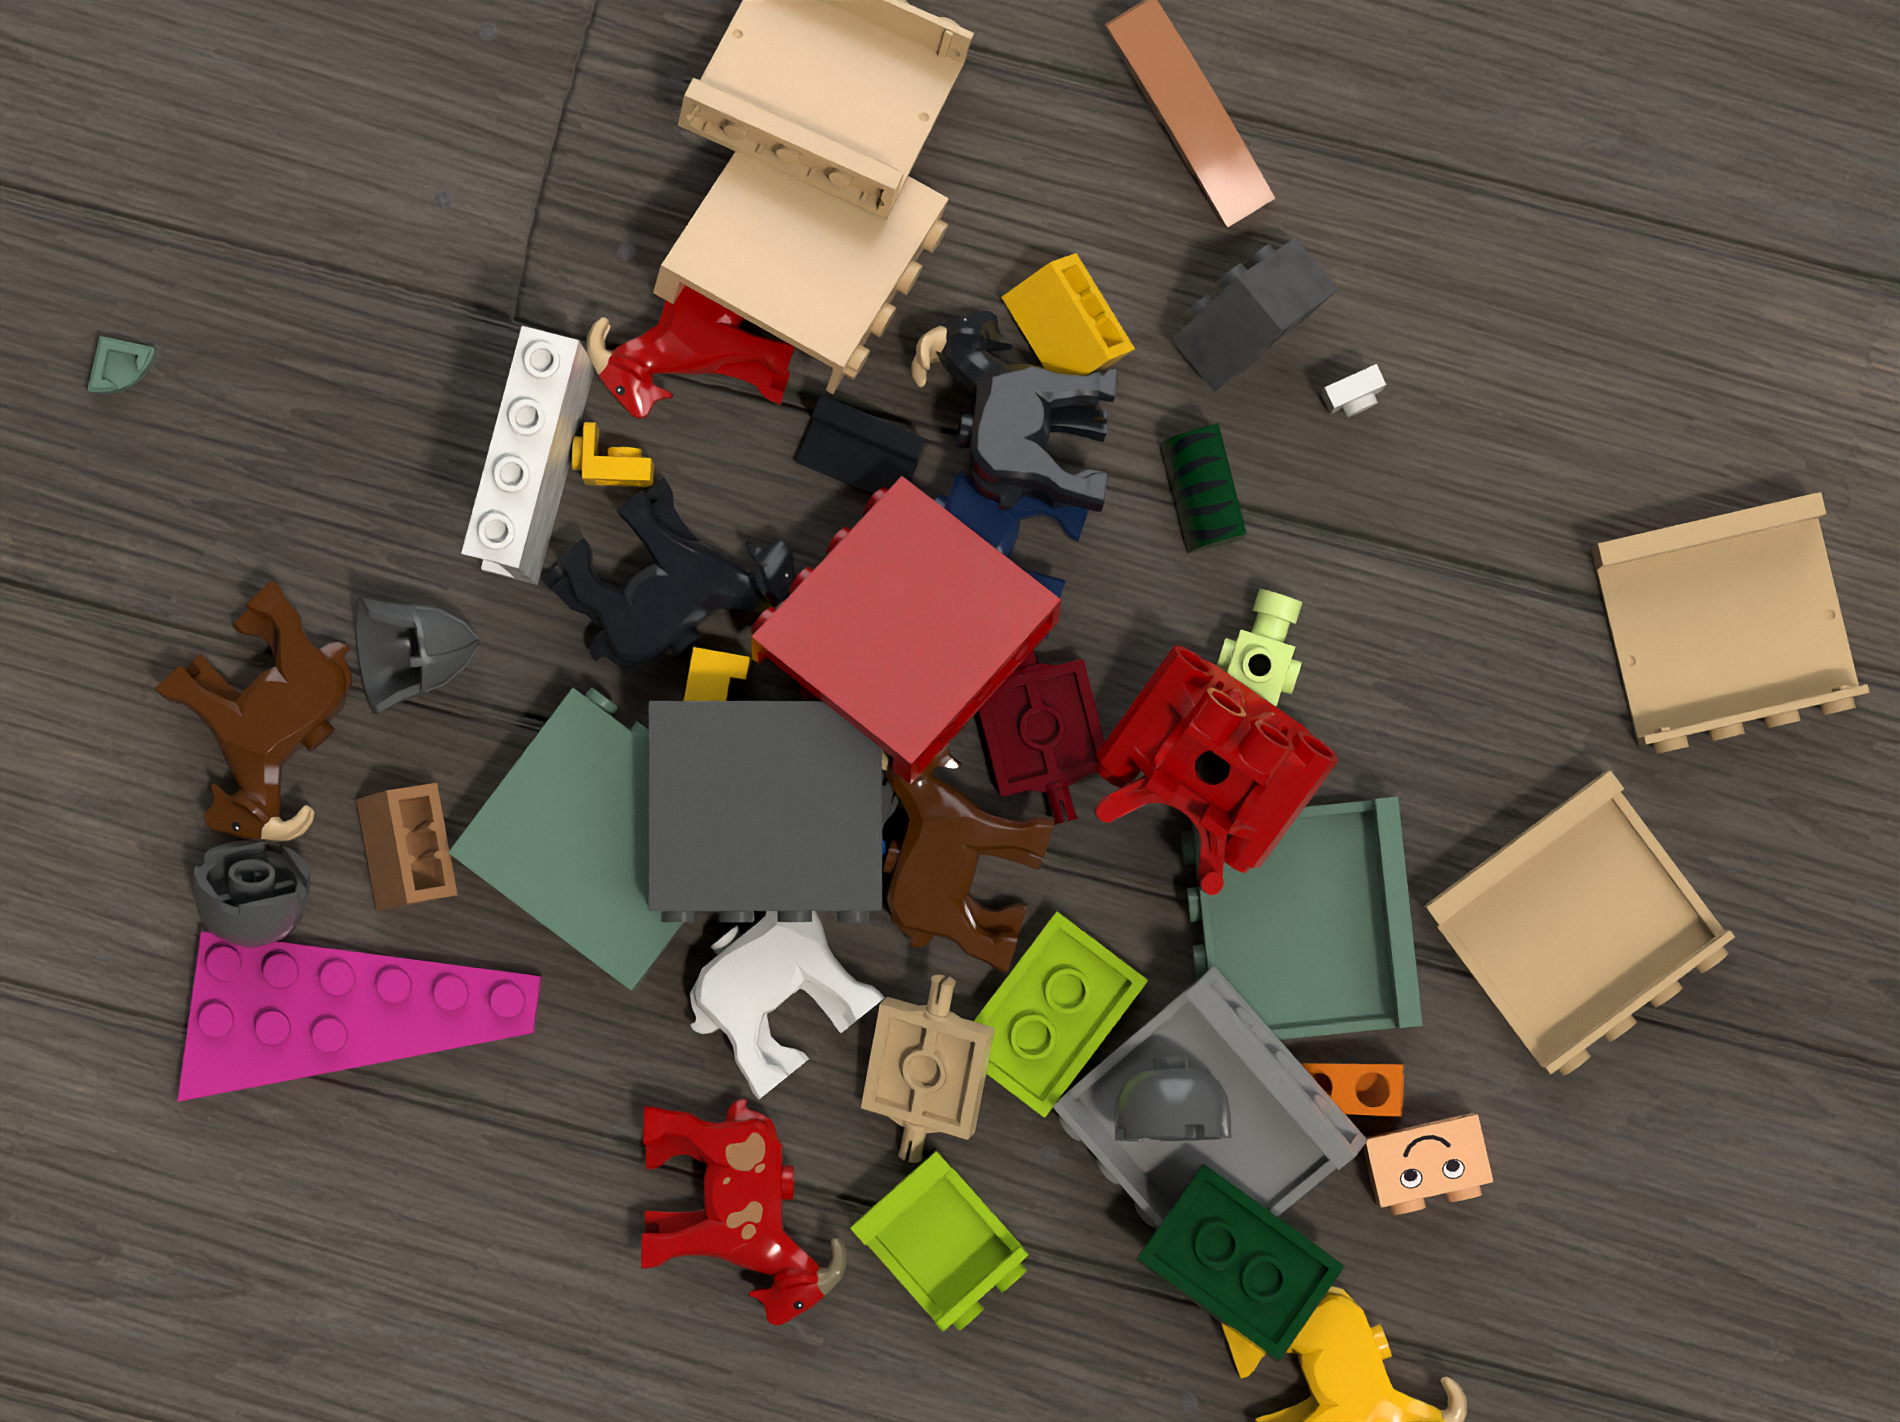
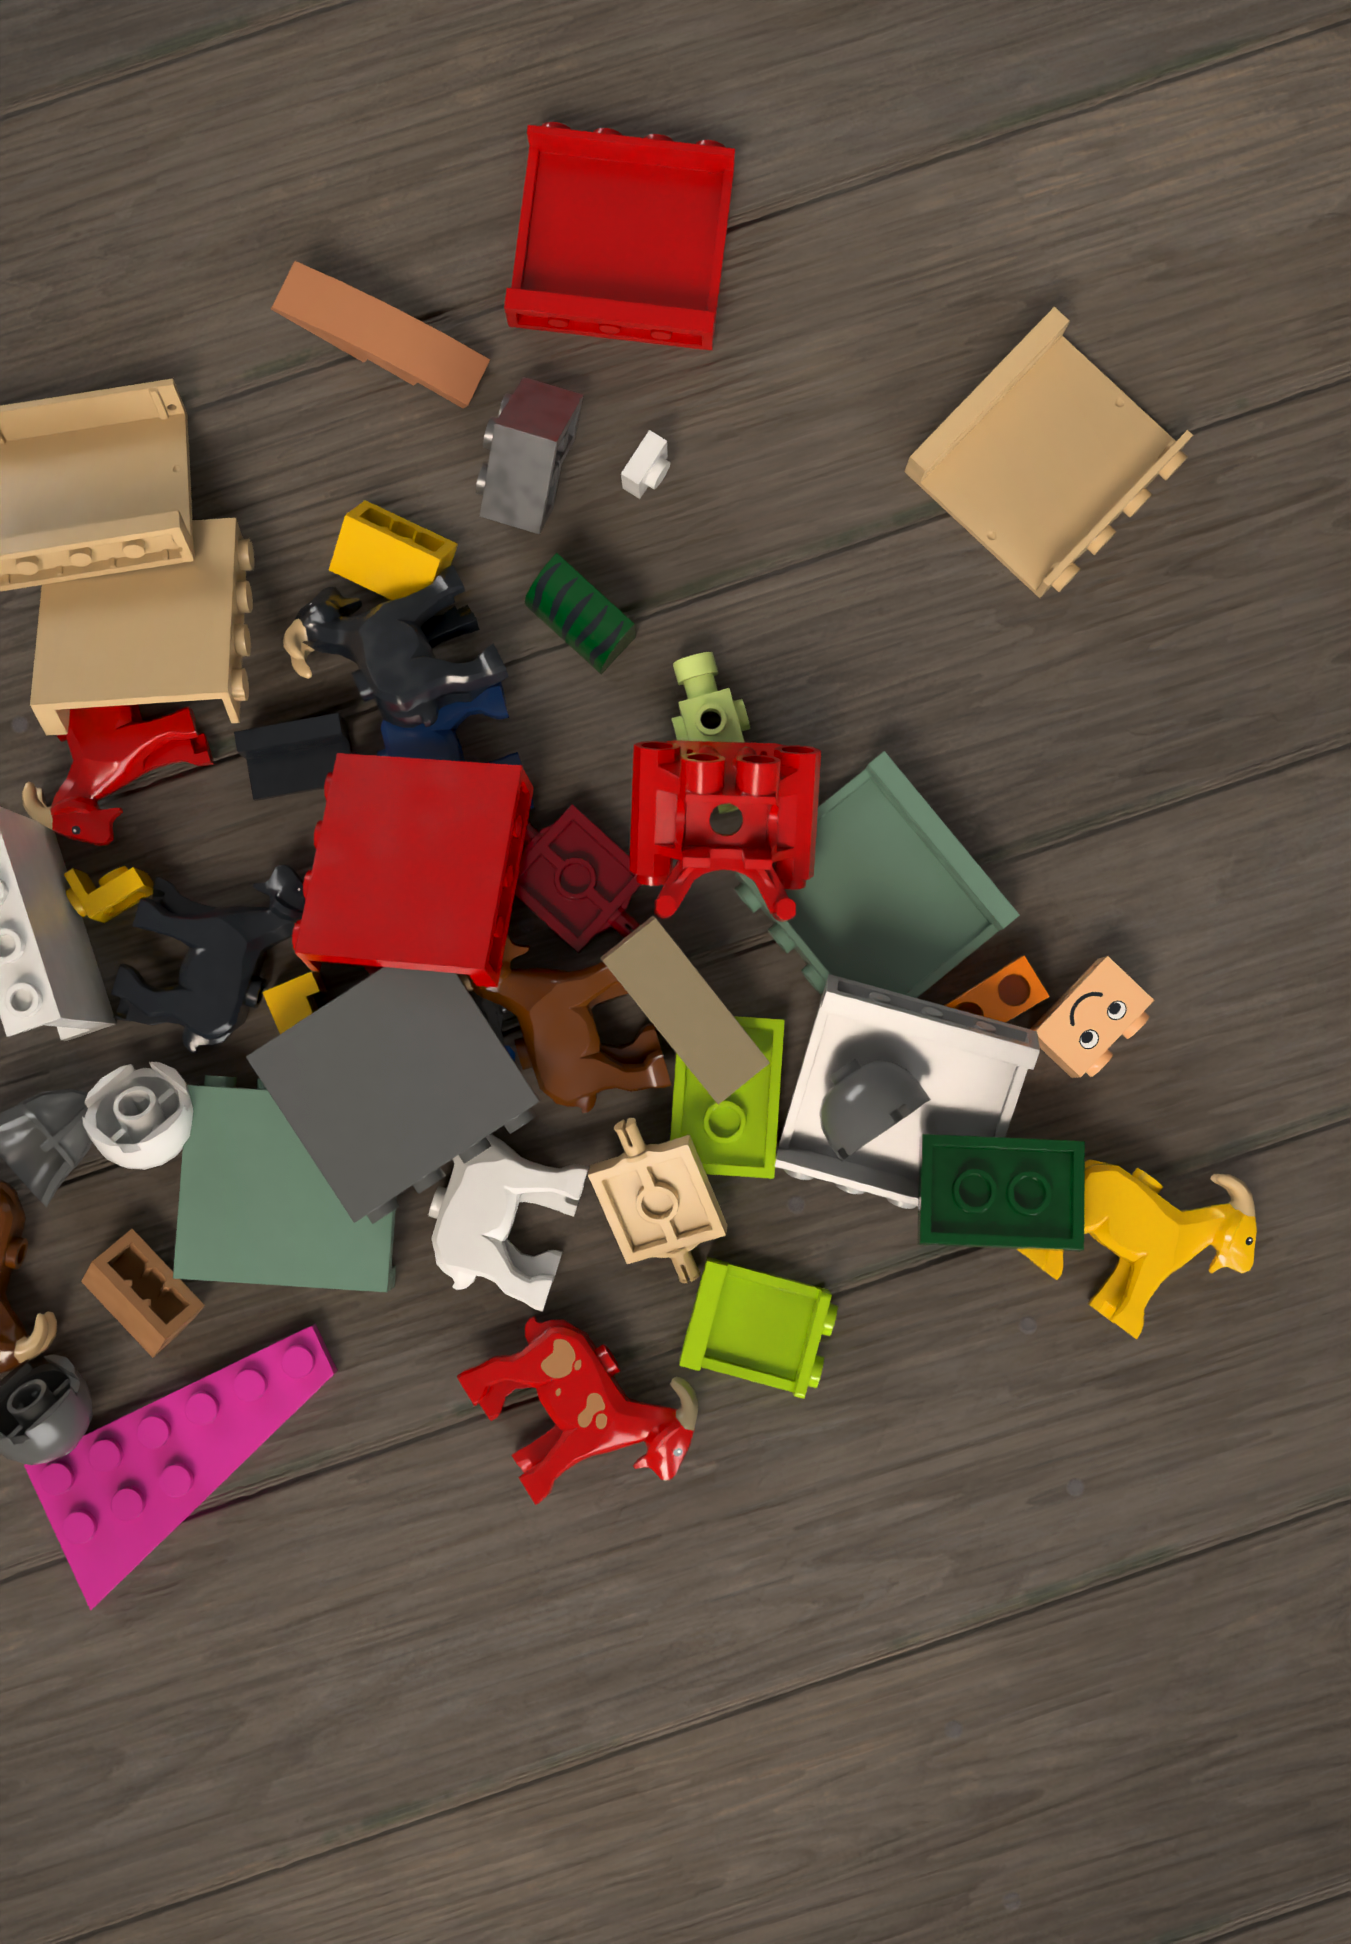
camera: 30 degrees left, 0 degrees up
(512, 686) = (139, 1115): none -> white cylinder
(1064, 913) = (685, 1009): none -> dark tan piece
(1470, 163) = (621, 236): none -> red panel
(1578, 926) = (1086, 763): tan panel -> none

